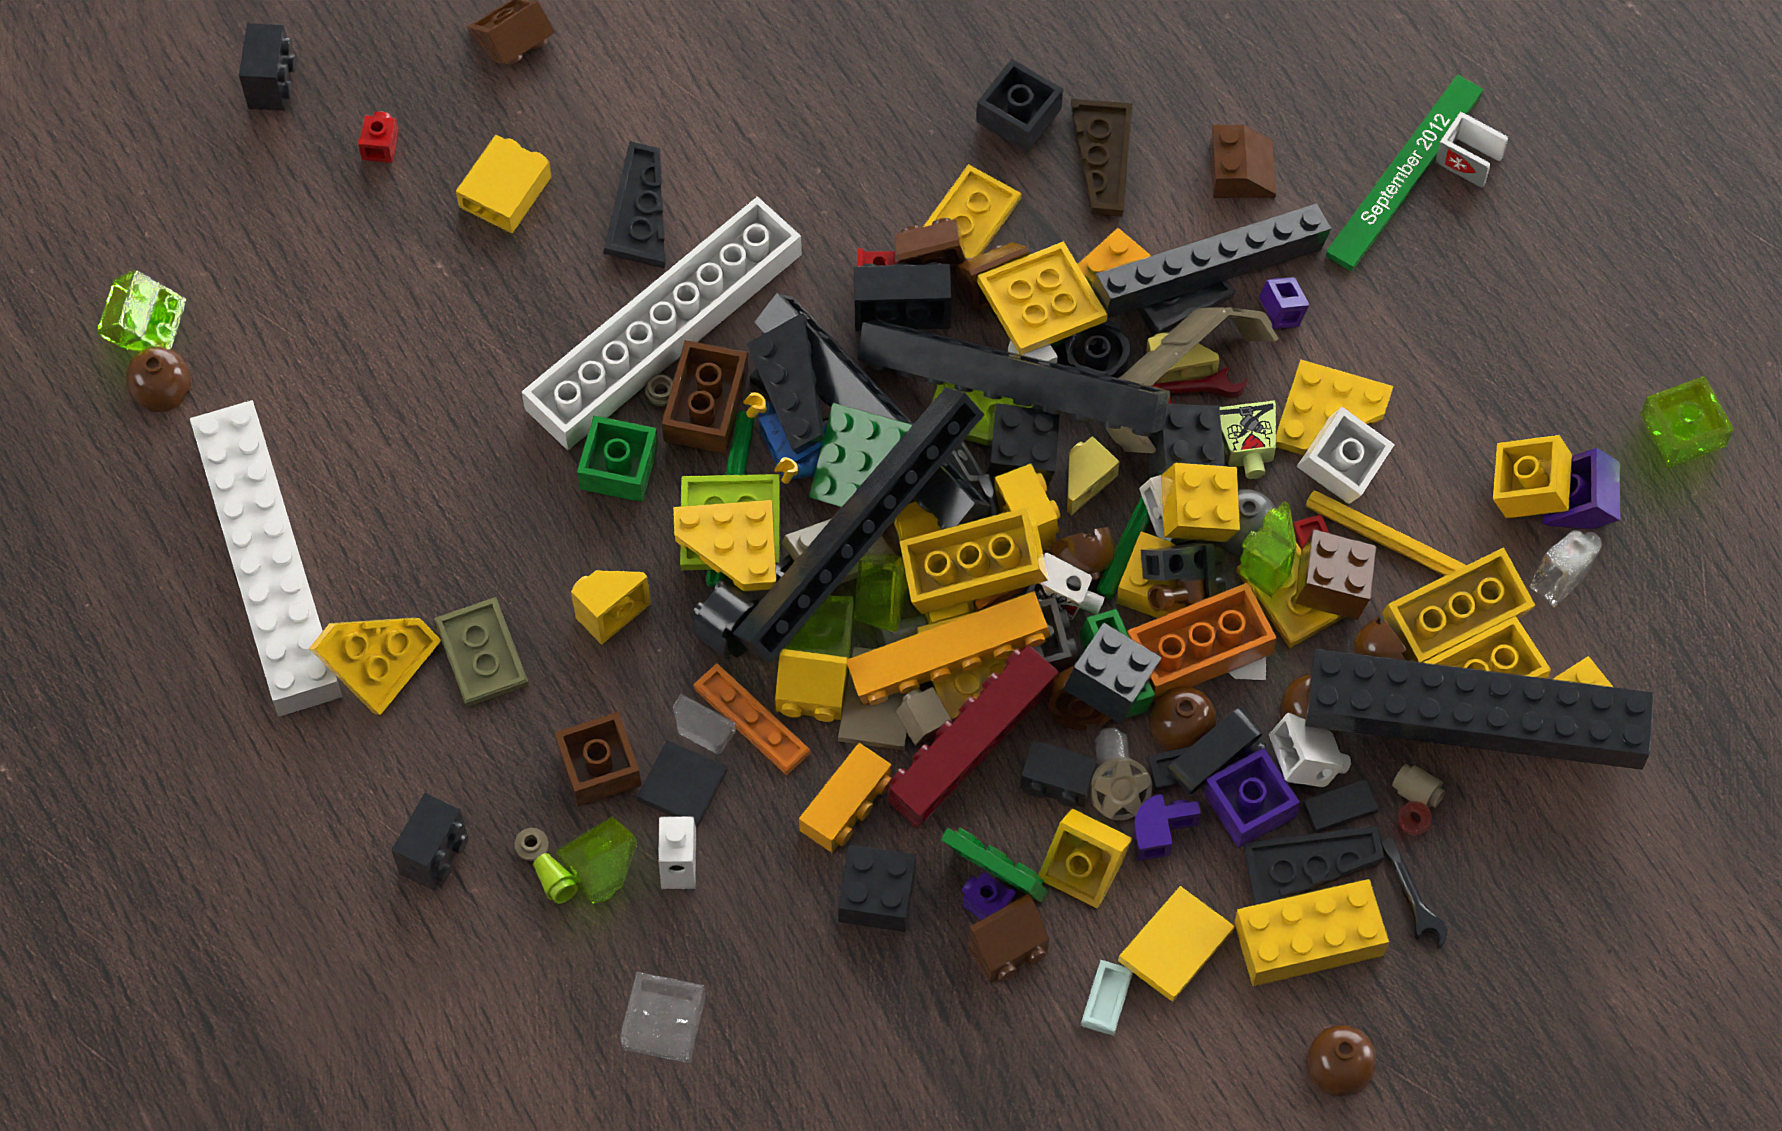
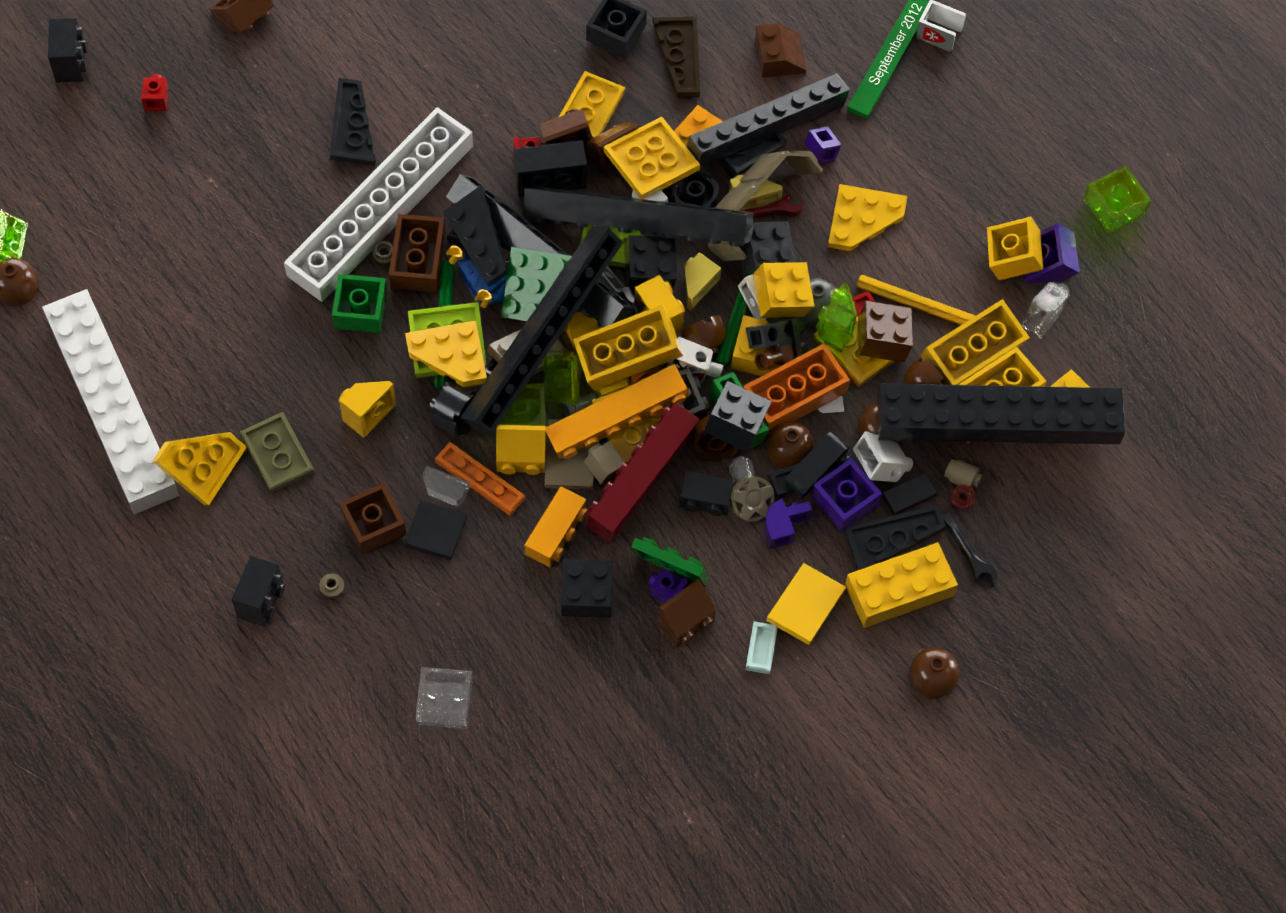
camera: 10 degrees left, 0 degrees up
(504, 183) = (251, 117): yellow brick -> none
(555, 879) = (352, 608): lime cone -> none
(599, 859) = (383, 590): clear neon green slope -> none
(677, 847) = (439, 576): white torso -> none
(1084, 857) = (732, 550): yellow slope -> none
(1249, 436) = (811, 240): yellowish green torso -> none
(1345, 455) = (881, 247): white brick -> none

